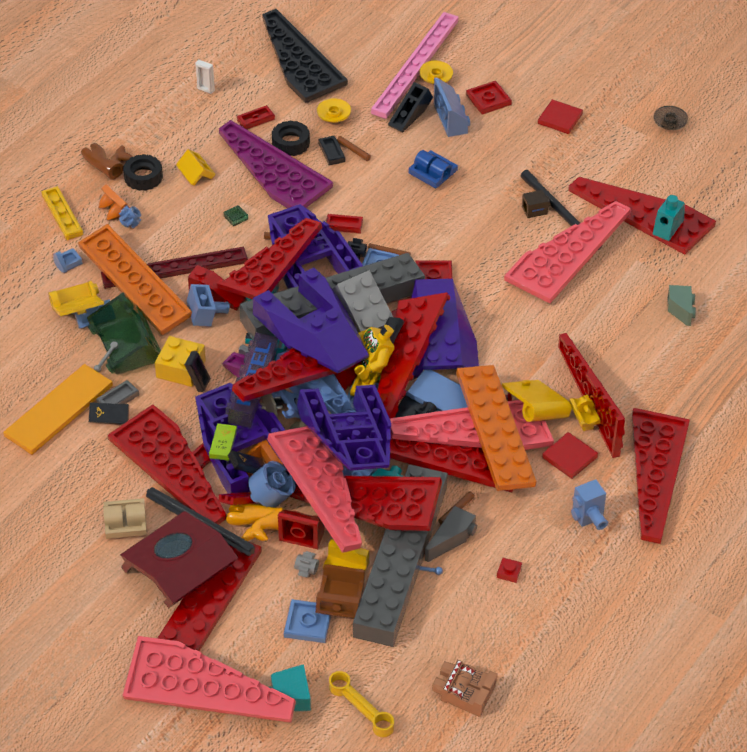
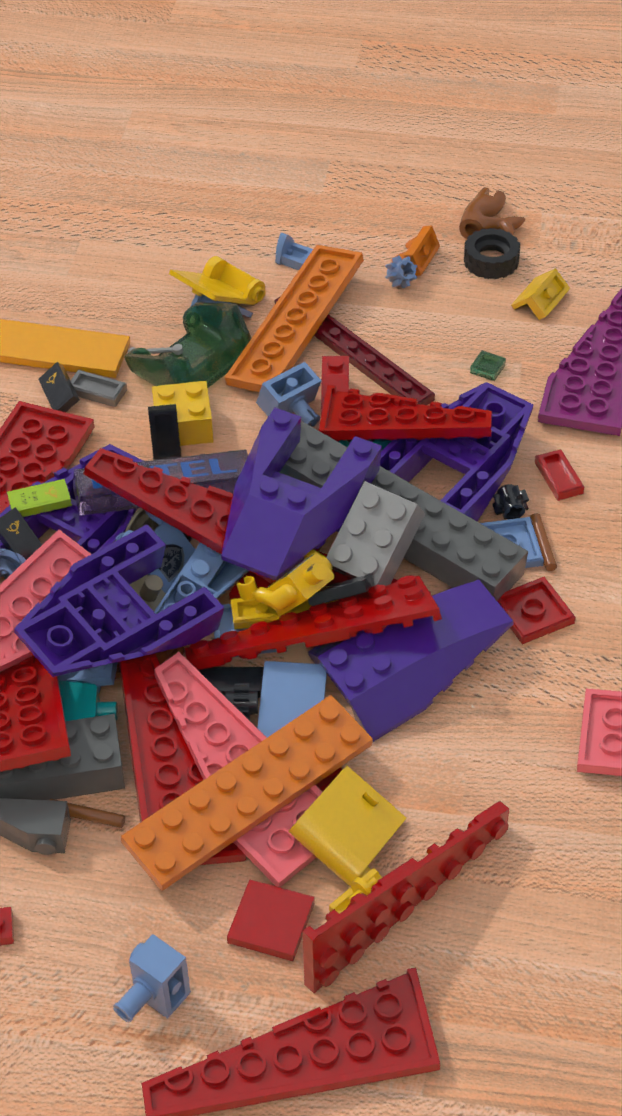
camera: 65 degrees right, 0 degrees up
(62, 213) = (371, 220): yellow tile -> none

